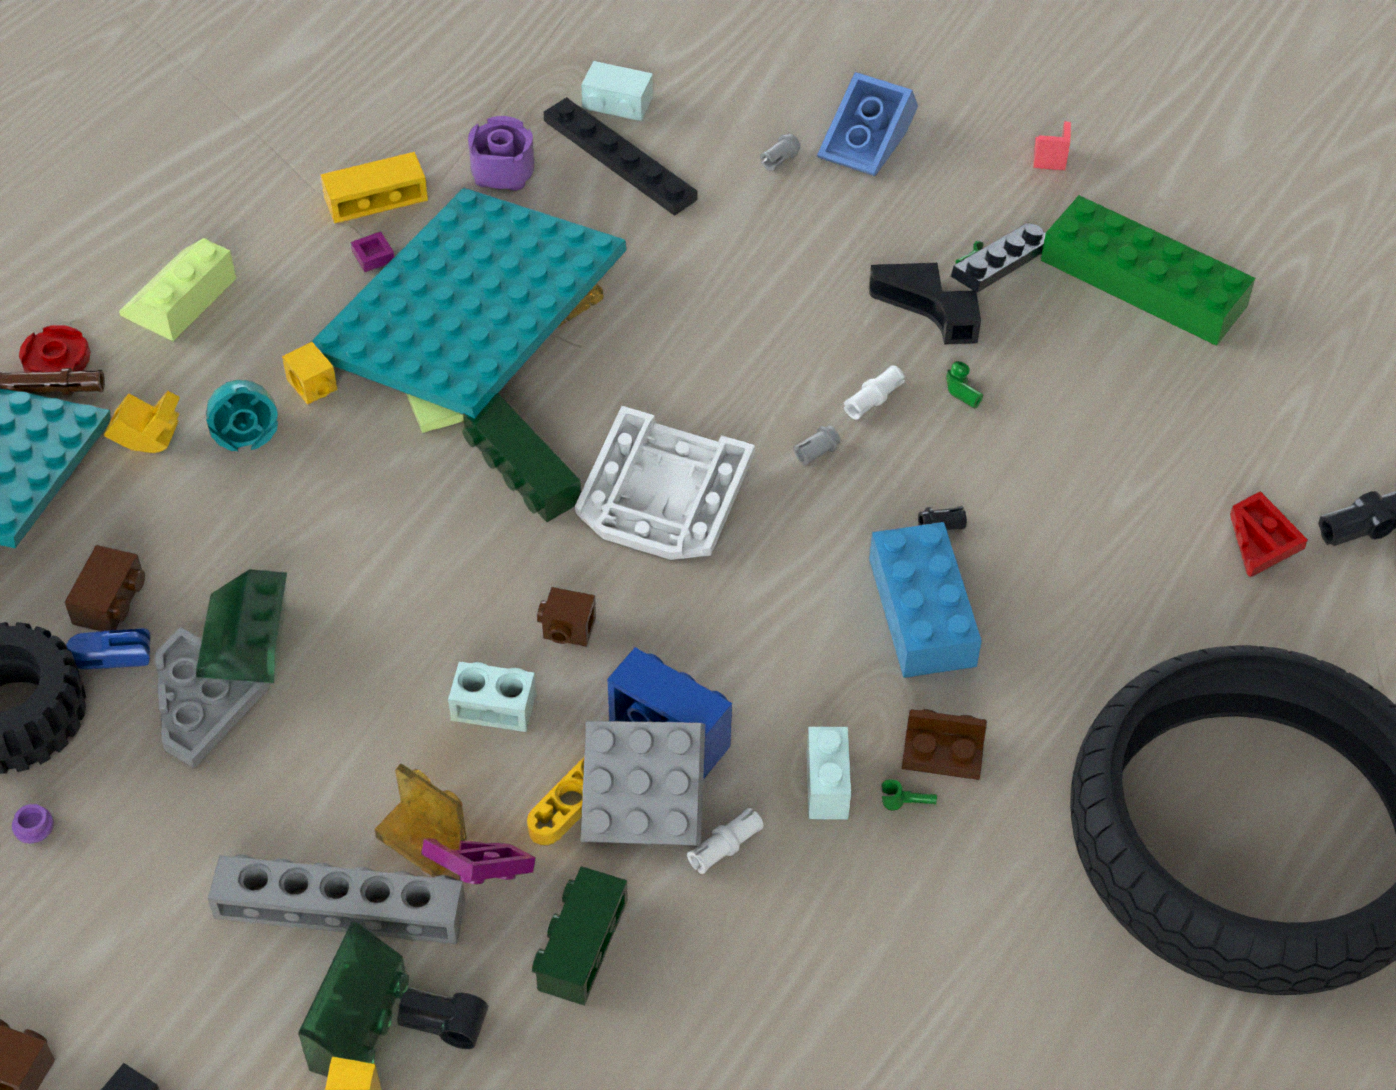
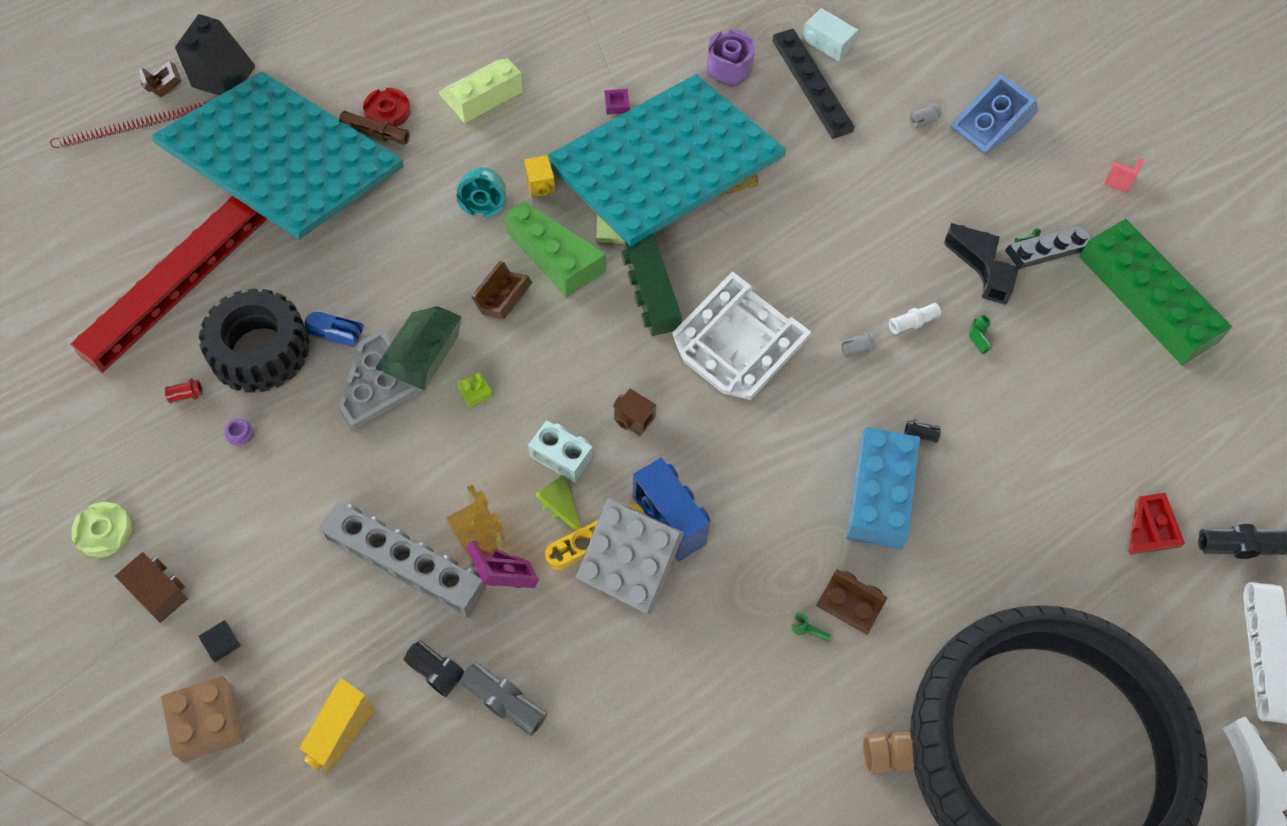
camera: 20 degrees right, 10 degrees up
(105, 589) = (347, 285): reddish brown brick -> none
(142, 425) = (418, 177): yellow brick -> none
(322, 529) = (500, 291): none -> reddish brown bracket
(339, 662) = (474, 389): none -> lime tile
(353, 1001) = (377, 640): clear green slope -> none
(371, 454) = (554, 249): none -> bright green wedge
(374, 187) = (636, 55): yellow brick -> none
(513, 751) = (559, 499): none -> lime piece
(552, 1018) = (503, 698): none -> dark grey piece
(580, 935) = (546, 646): dark green brick -> none
(725, 840) = (671, 614): white pin -> none
(828, 773) = (761, 592): light aqua brick -> none
(1066, 899) = (884, 752): none -> medium nougat wheel

